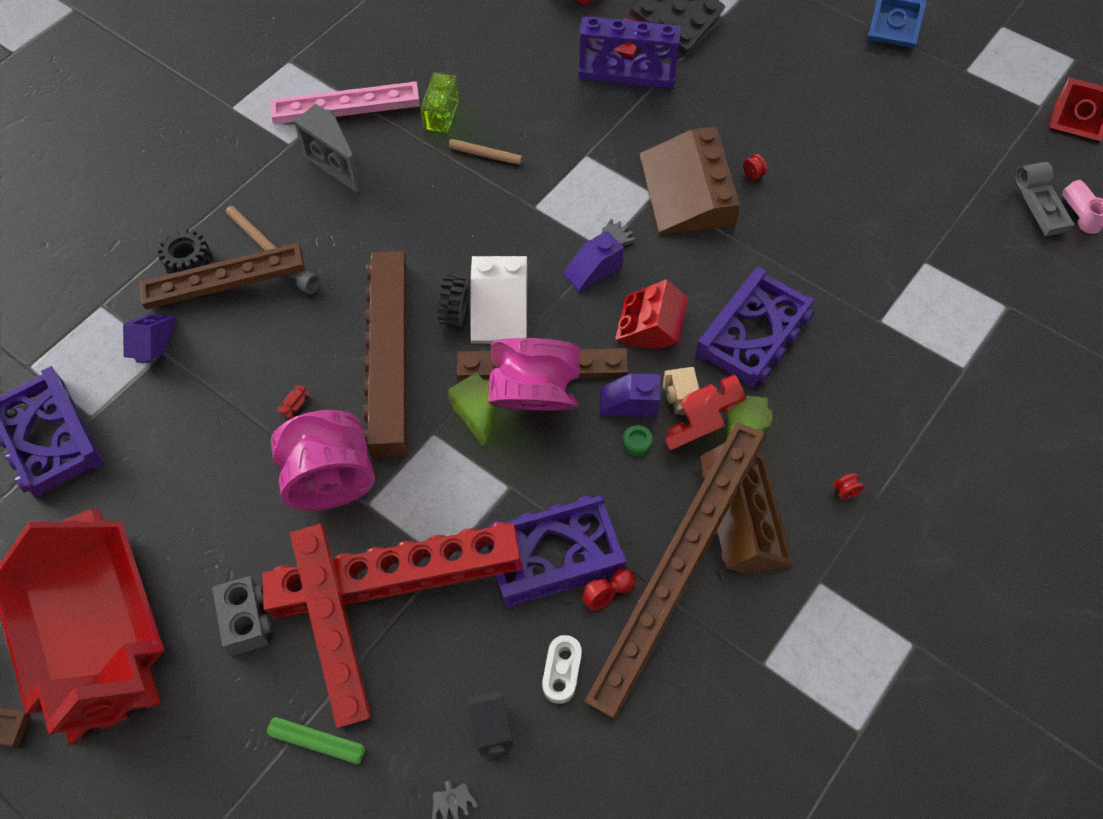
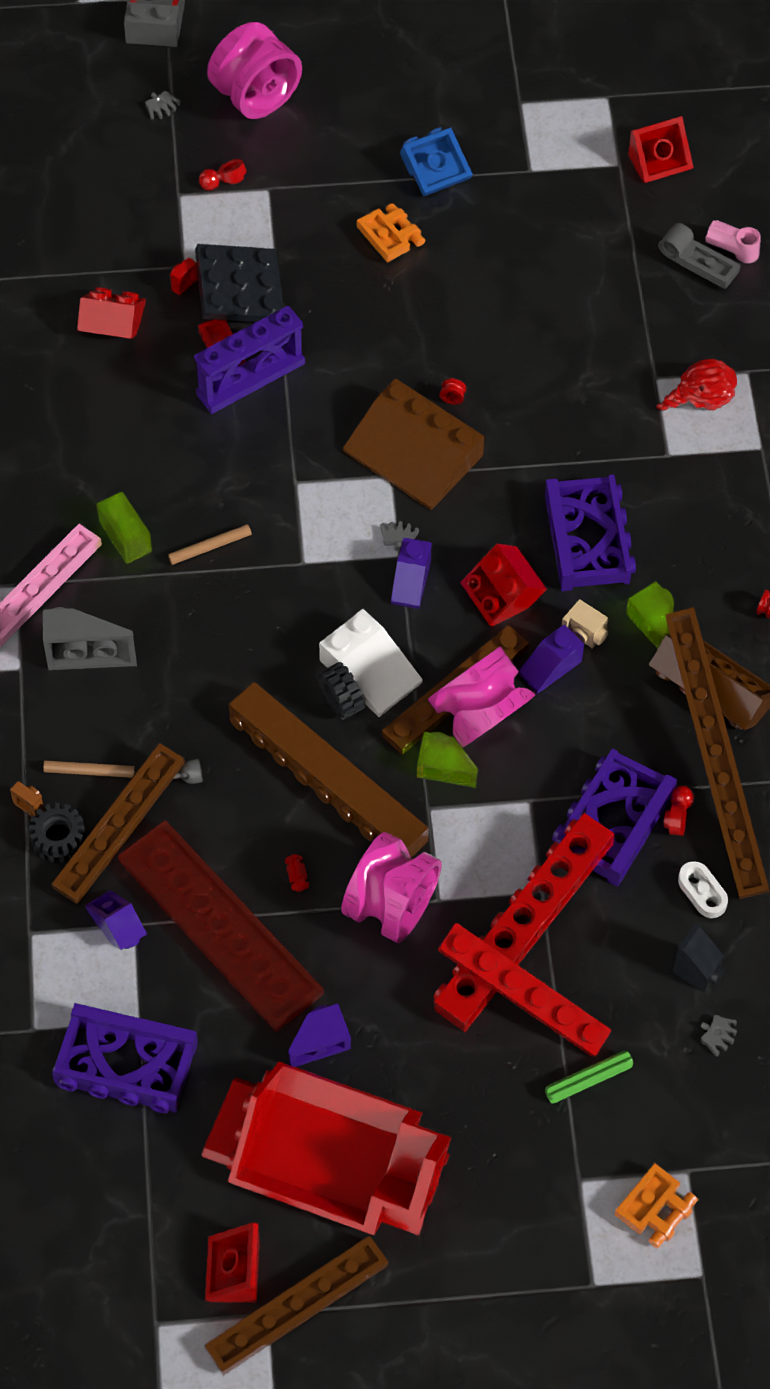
camera: 45 degrees left, 0 degrees up
(171, 527) = (320, 1036): none -> dark purple slope
(191, 217) = (27, 798): none -> dark orange plate
(203, 400) = (221, 926): none -> clear red plate
(234, 617) = (440, 1052): dark grey brick -> none
(637, 440) = (587, 690): green tile -> none
(704, 410) = (624, 628): red plate -> none
(812, 47) = (383, 234): none -> orange plate
(958, 288) = (705, 385): none -> red hair

